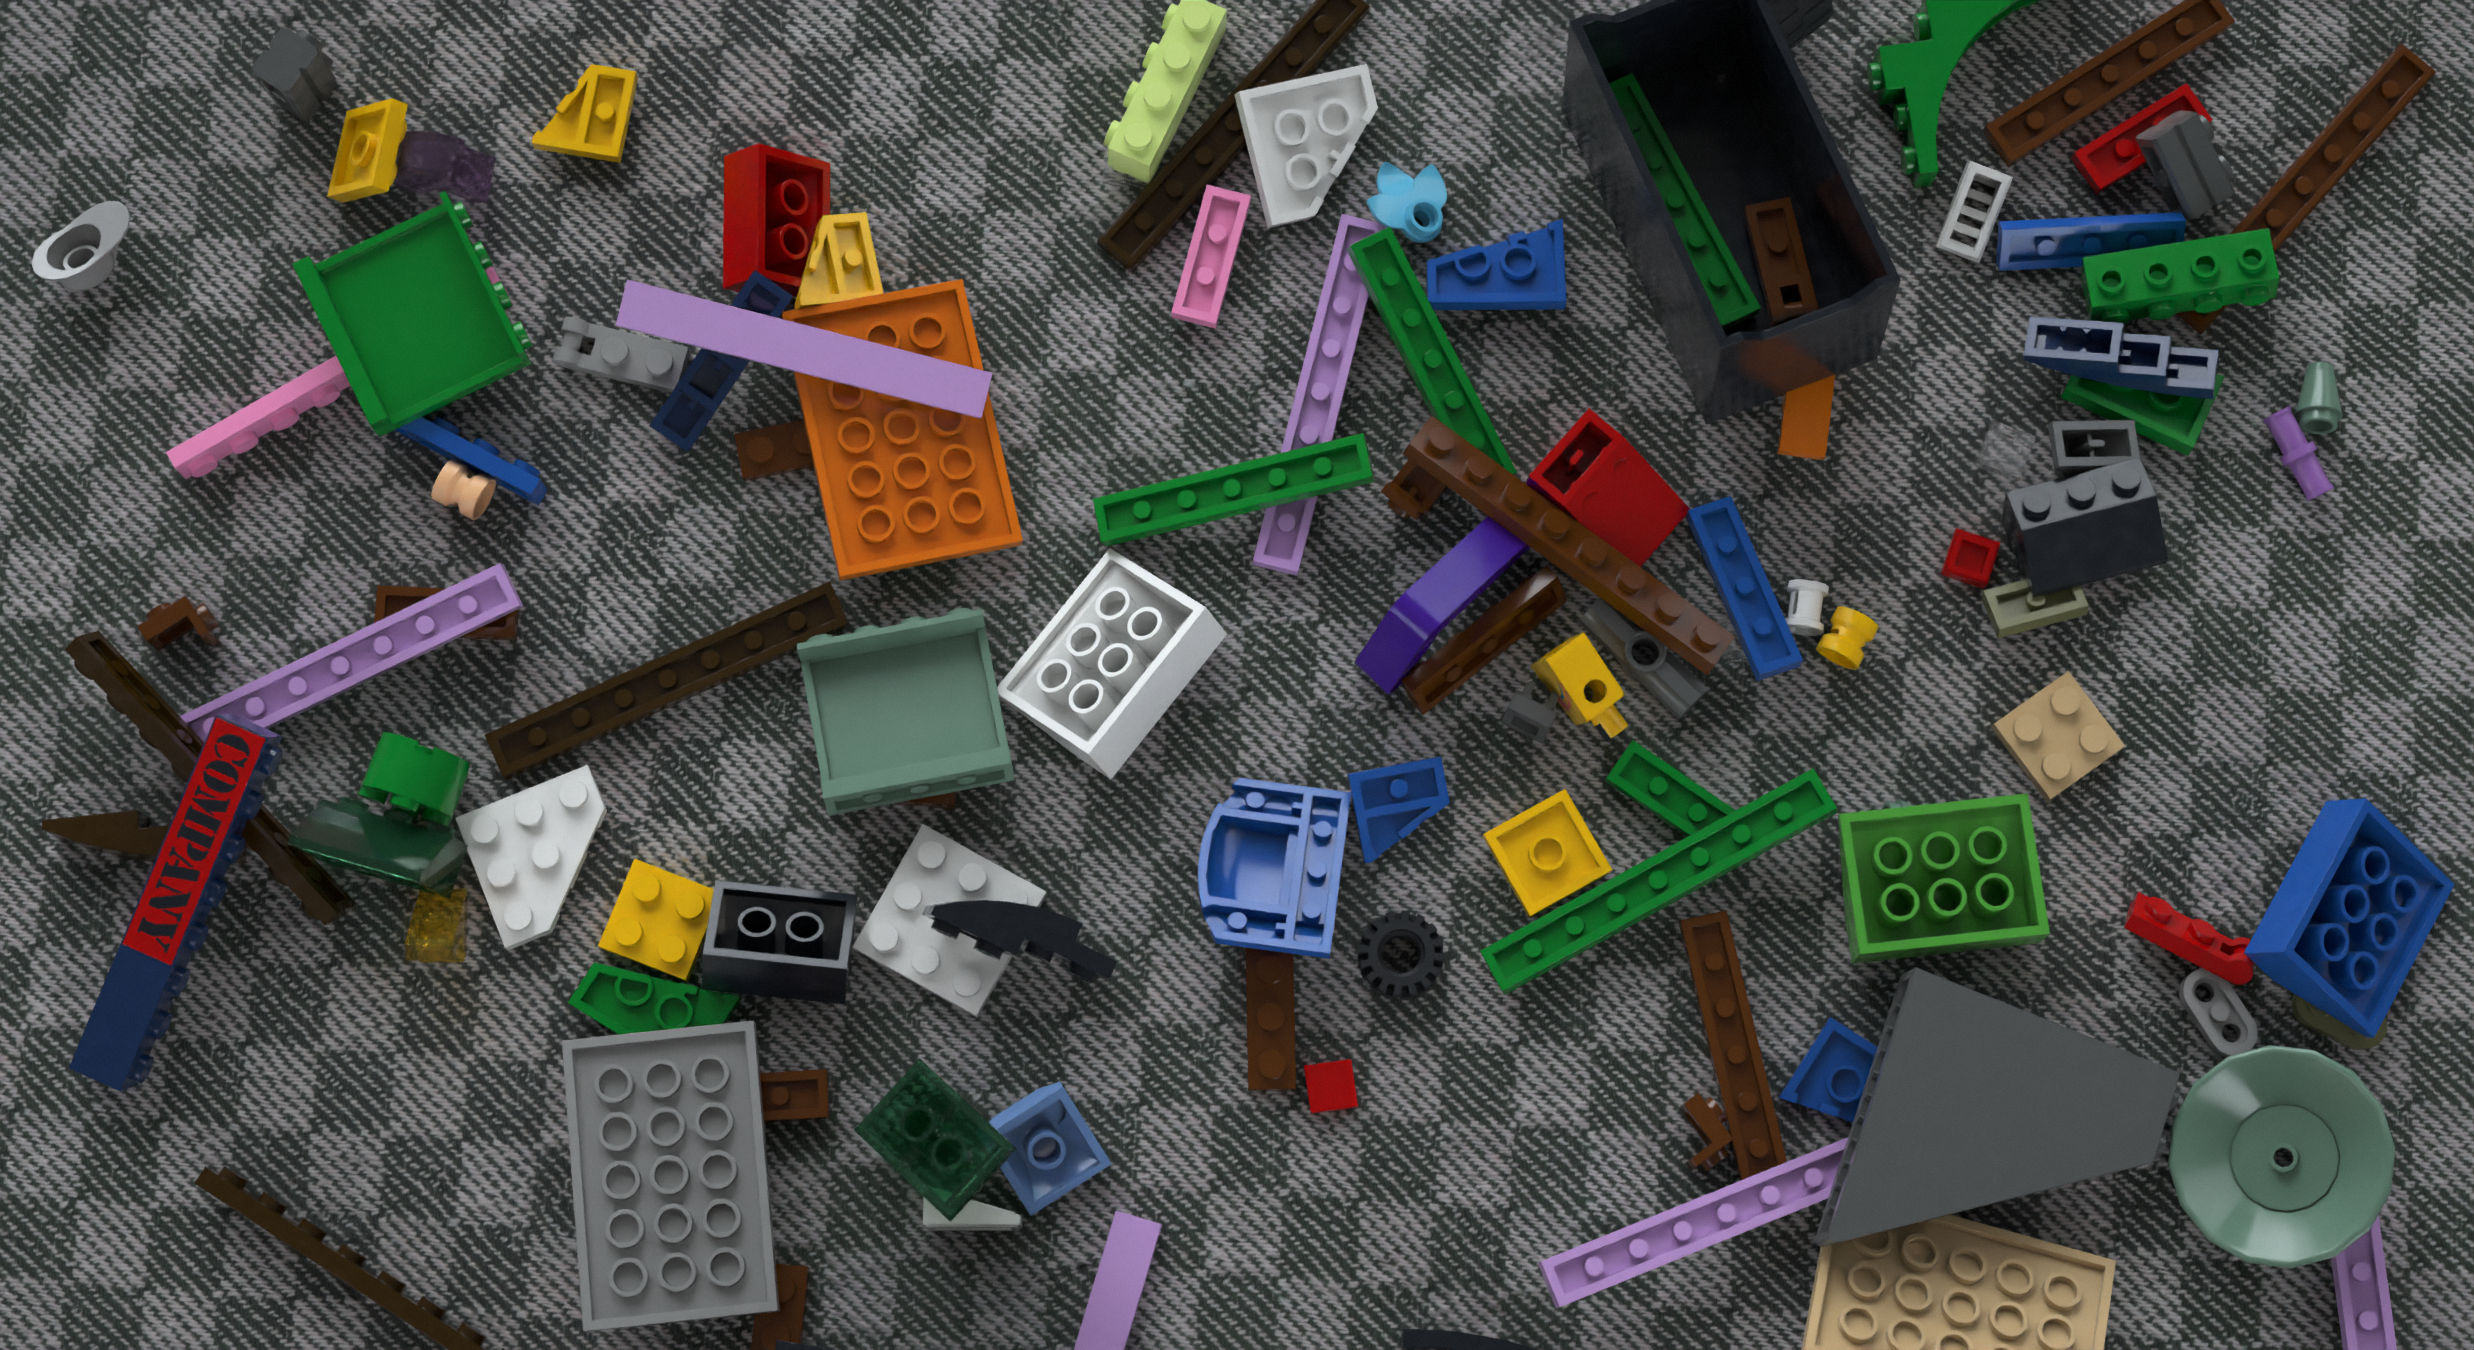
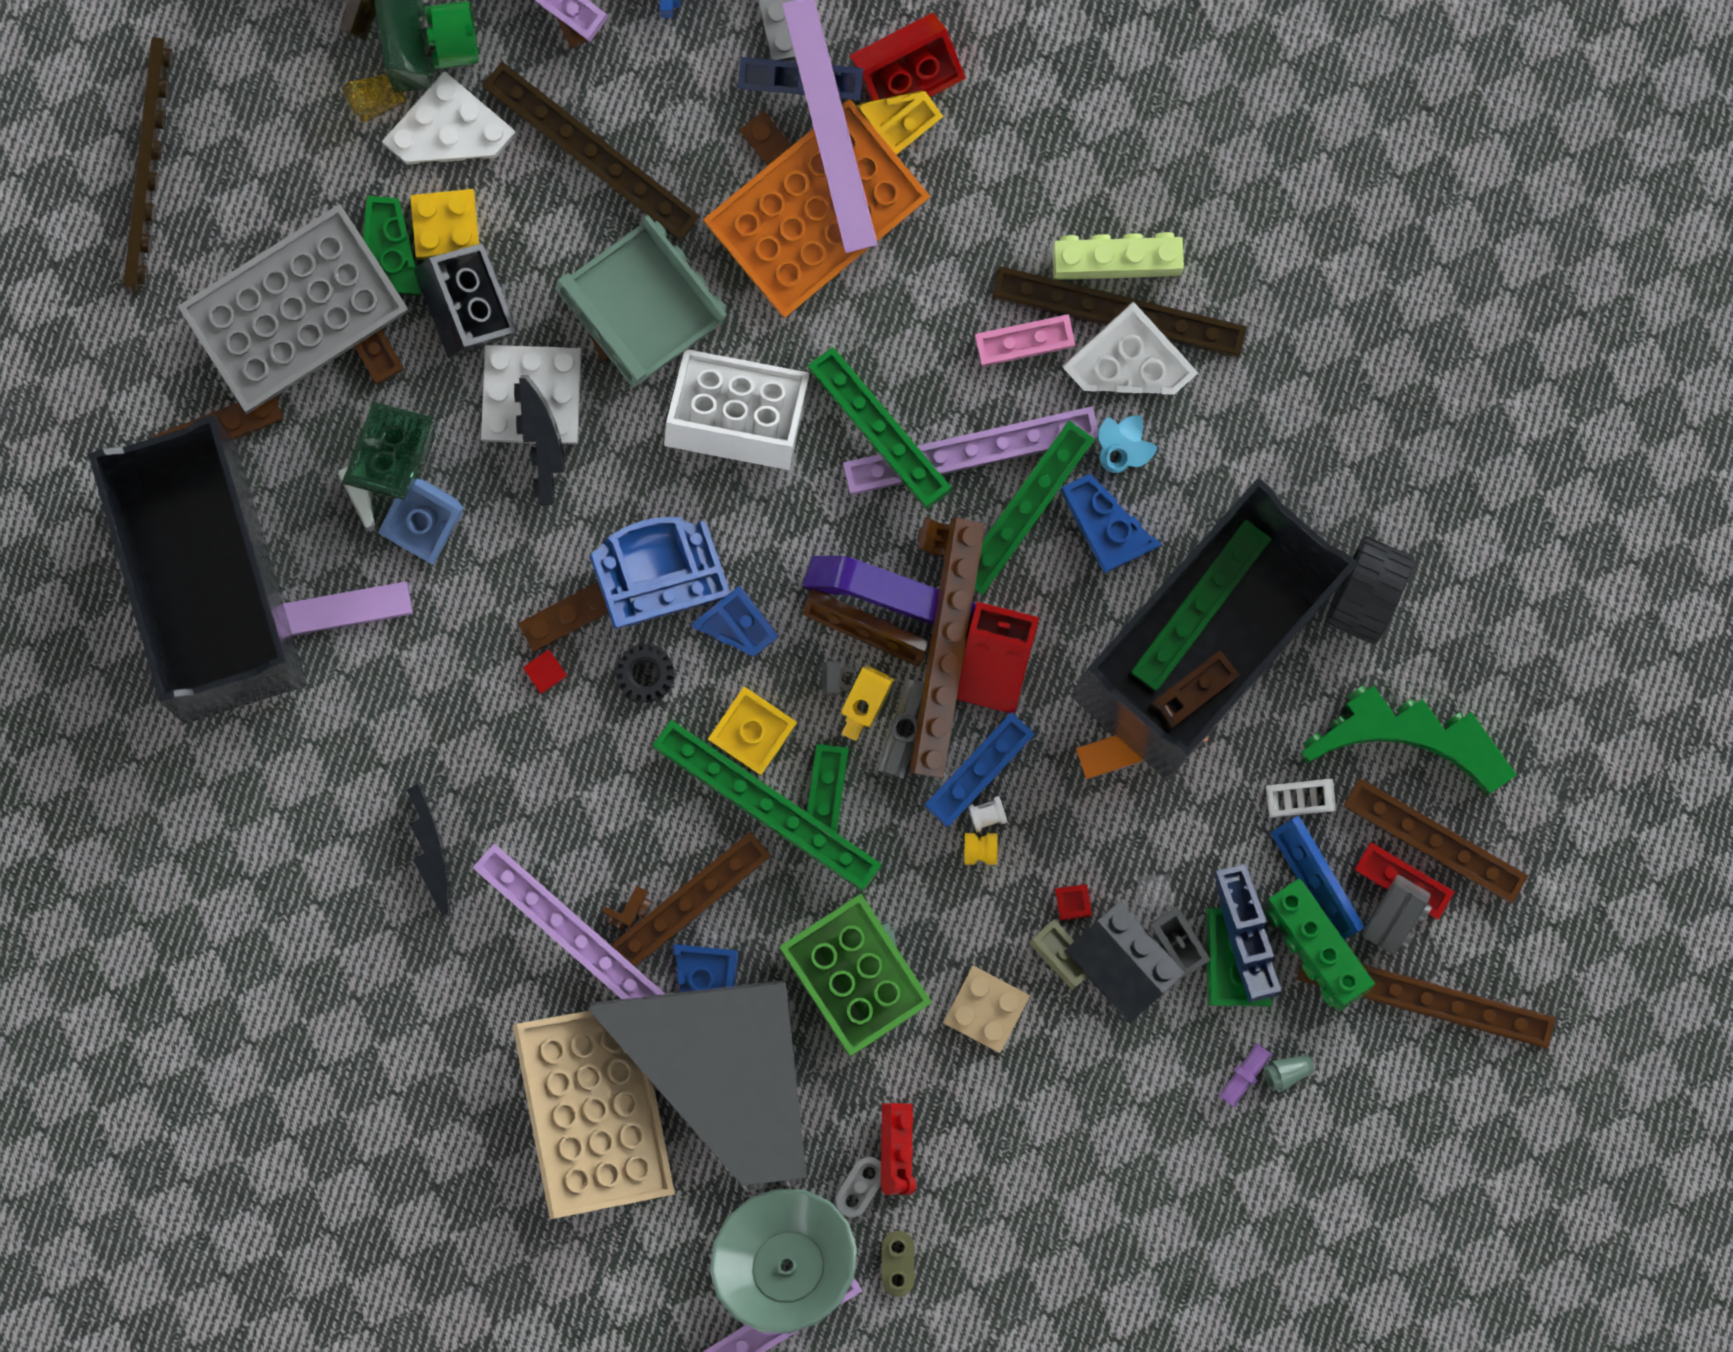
camera: 65 degrees right, 5 degrees up
(2350, 915) = (960, 1240): blue slope -> none

